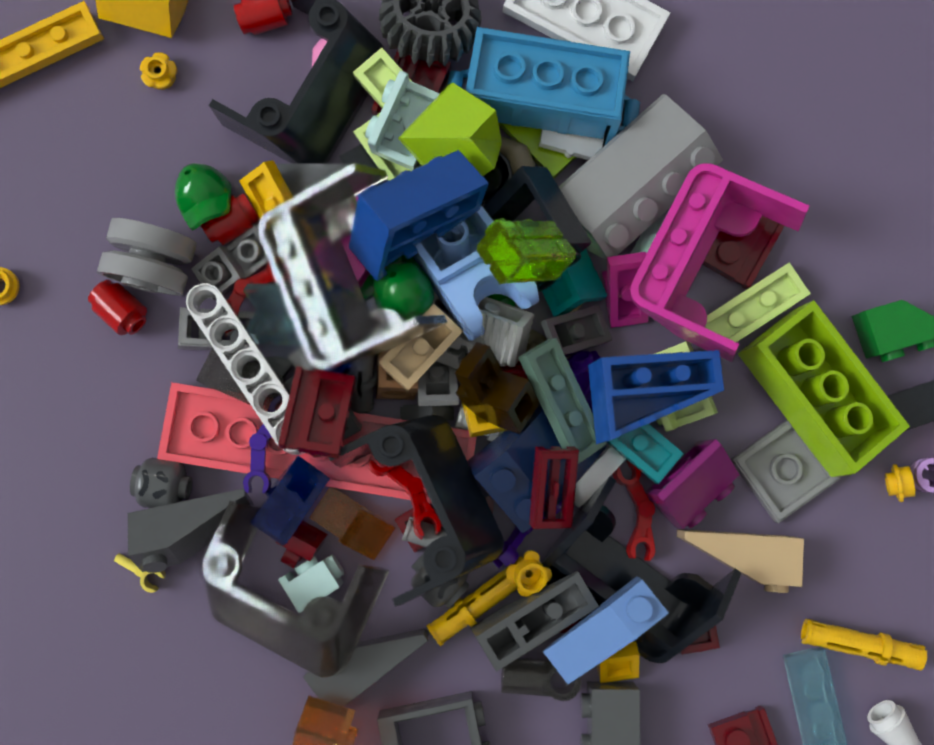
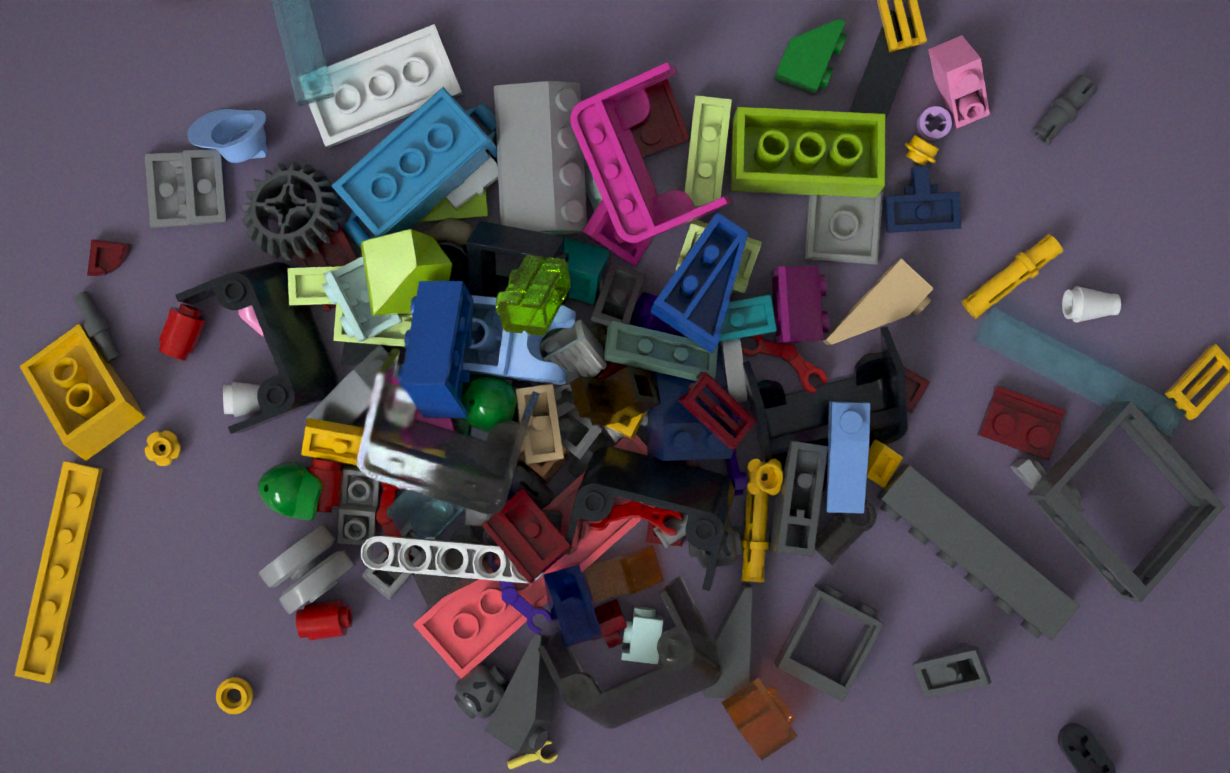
camera: 45 degrees left, 5 degrees up
(243, 95) = (240, 398): none -> white cone
(856, 521) = (922, 206): none -> dark blue hinge

